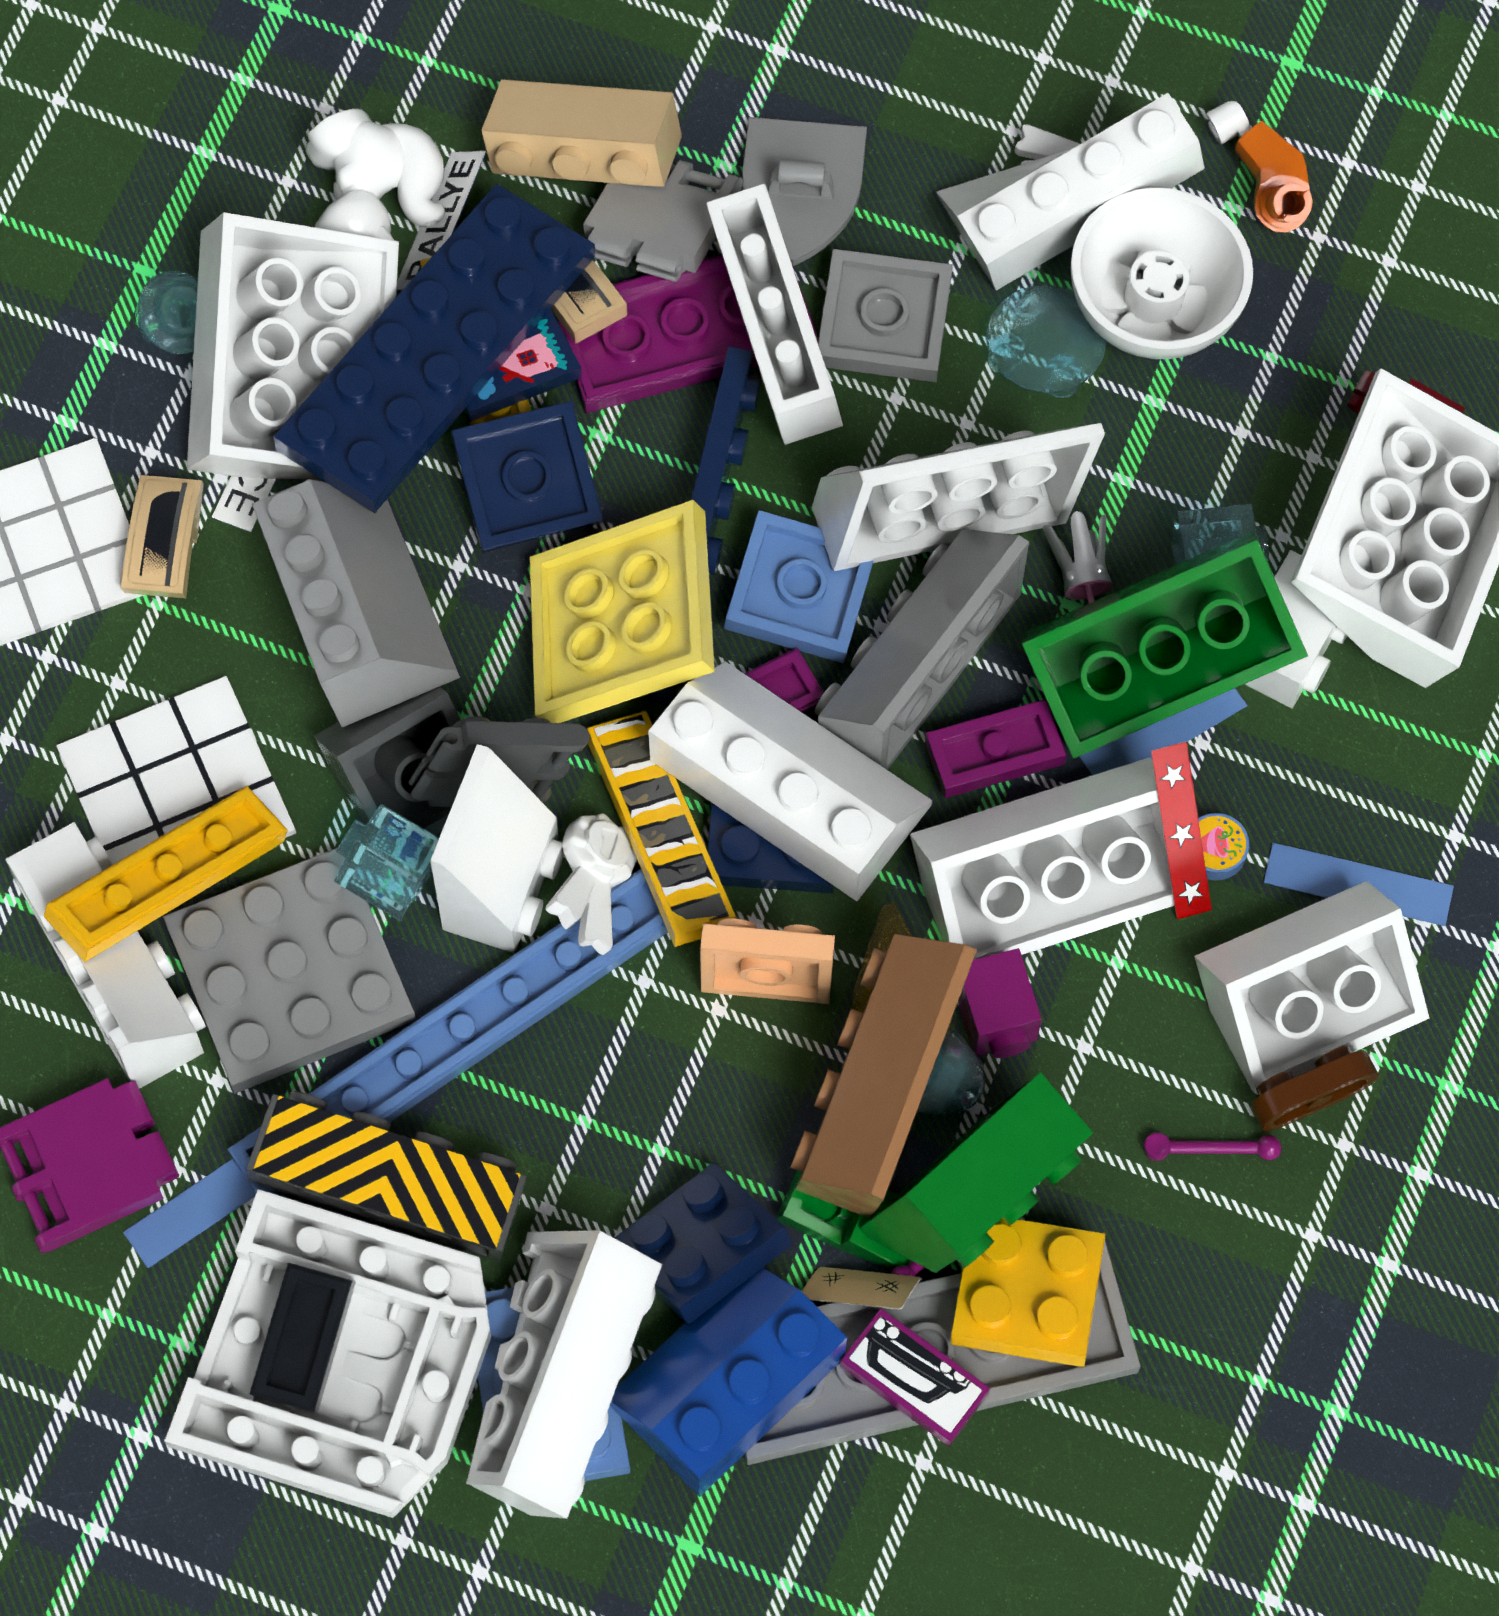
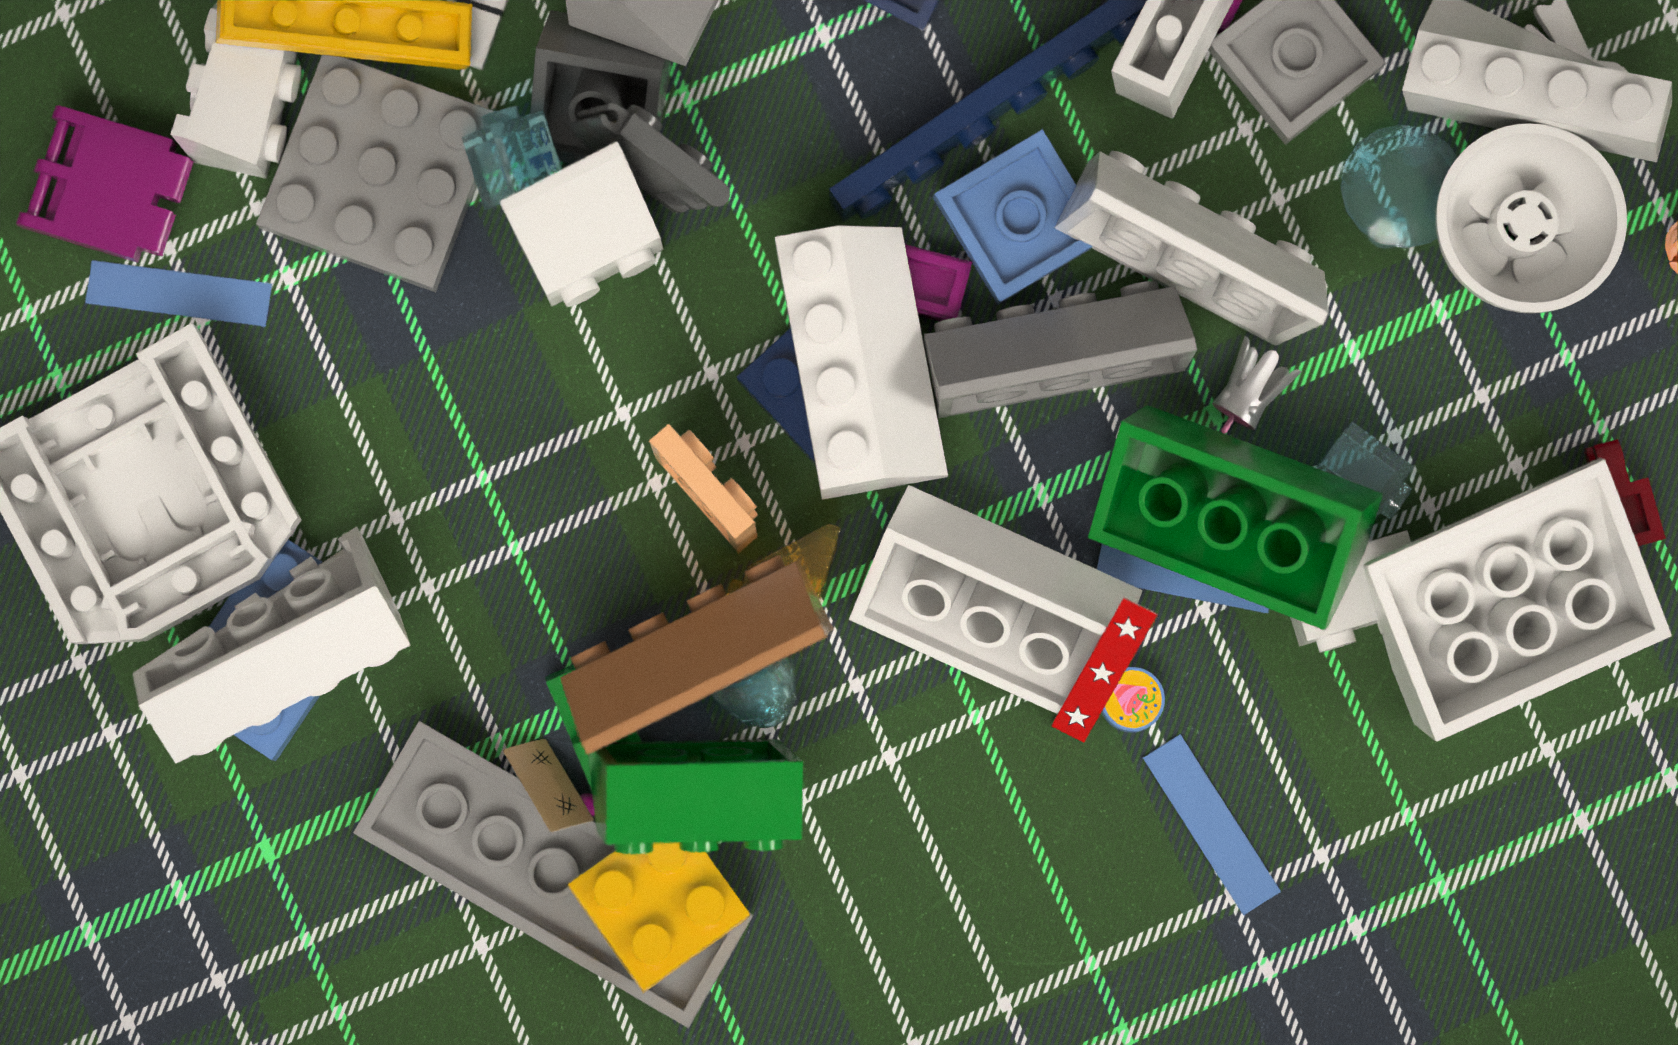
camera: 45 degrees right, 15 degrees up
(302, 1338) = (124, 460): black tile -> none
(386, 1176) = (293, 394): brick -> none
(483, 1016) = (458, 331): medium blue tile -> none
(599, 861) = (670, 292): white piece -> none
(621, 613) = (855, 121): light yellow plate -> none
(659, 829) = (732, 314): tile -> none
(707, 1240) = (467, 649): dark blue plate -> none
(729, 1377) = (387, 762): blue slope -> none
(915, 1377) = (519, 887): tile -> none
(995, 748) = (1039, 475): magenta plate -> none
(999, 1005) = (848, 671): magenta brick -> none
(1158, 1146) = (868, 880): magenta hinge -> none
(1314, 983) = (1093, 871): white slope -> none
(1334, 1079) = (1042, 953): reddish brown plate -> none

